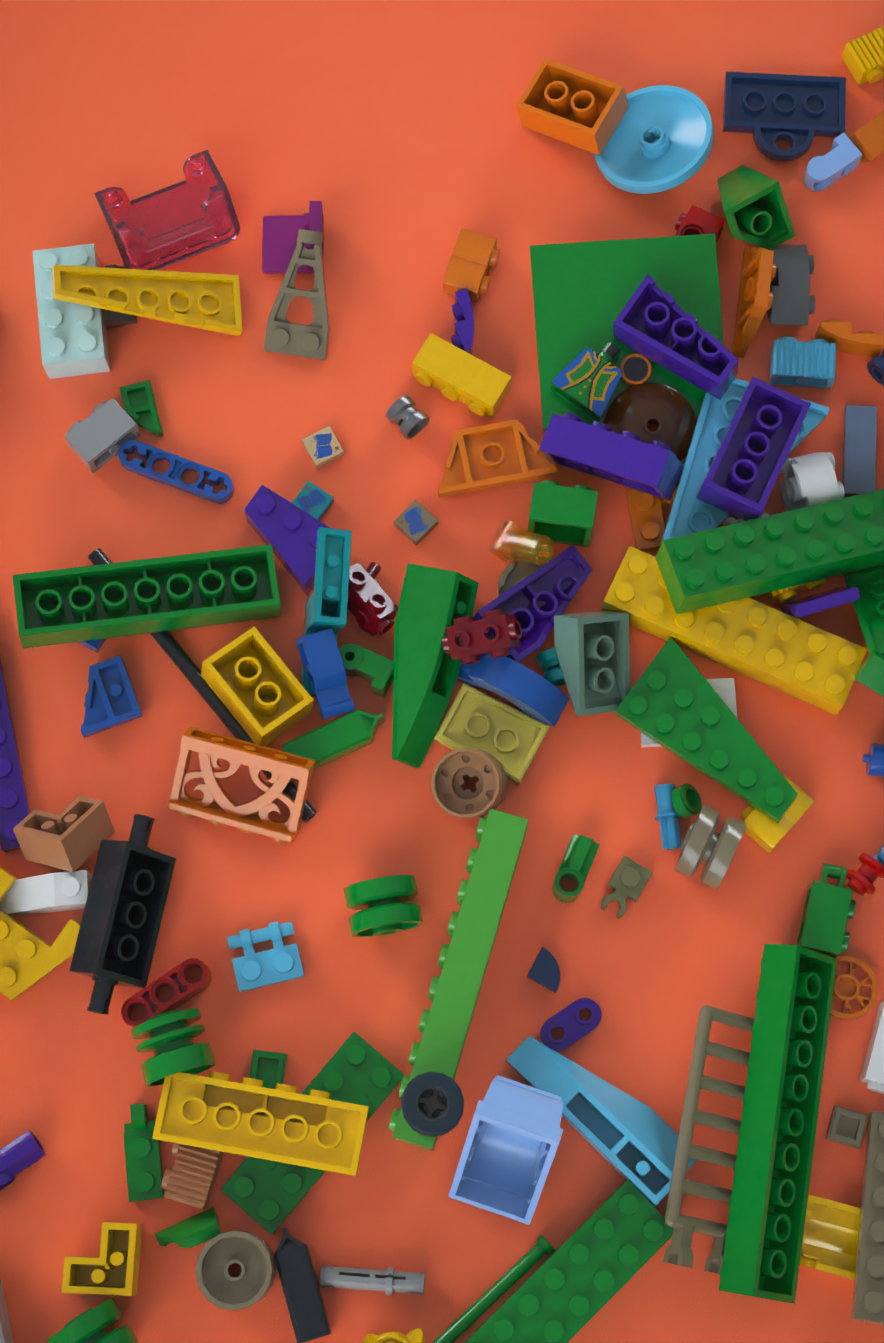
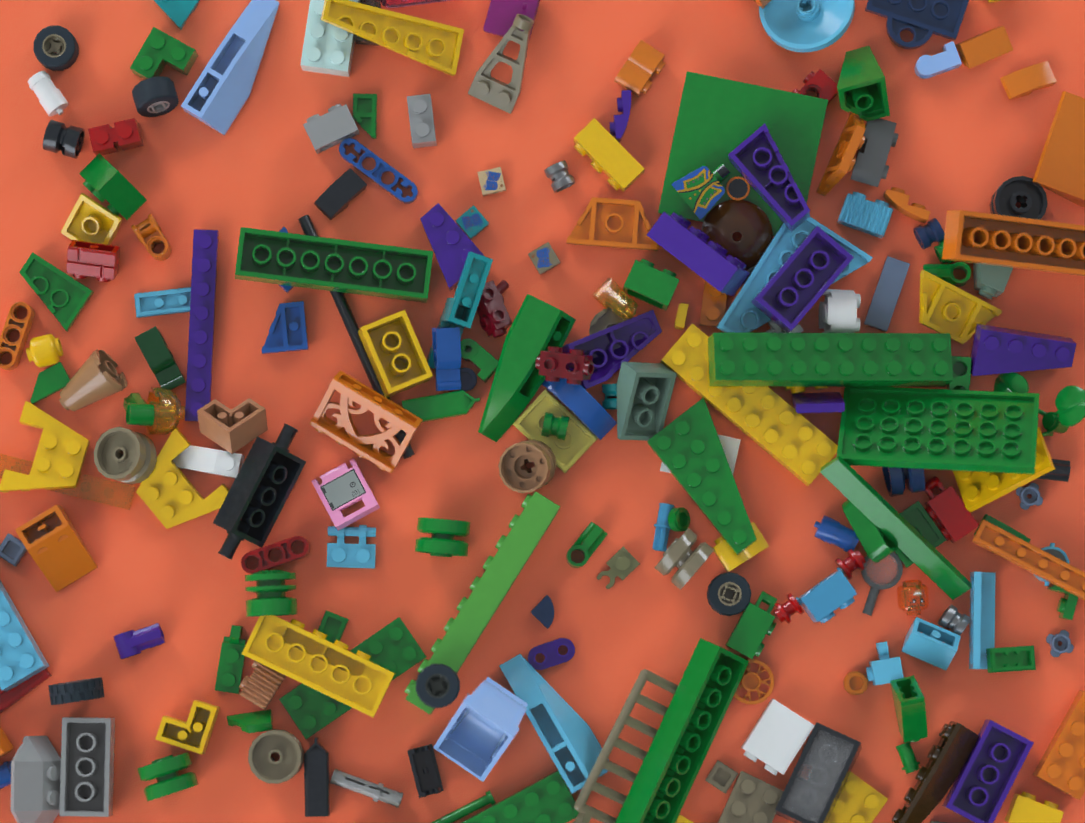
camera: 15 degrees right, 10 degrees up
(133, 510) = (340, 193): none -> black slope
(214, 395) = (421, 121): none -> light grey brick
(233, 882) = (342, 489): none -> container
(360, 696) = (468, 379): none -> dark blue tile
(446, 1232) = (425, 770): none -> black hinge
(490, 723) = (555, 426): none -> green wheel
(611, 545) = (681, 316): none -> yellow tile
(772, 888) = (722, 590): none -> black wheel

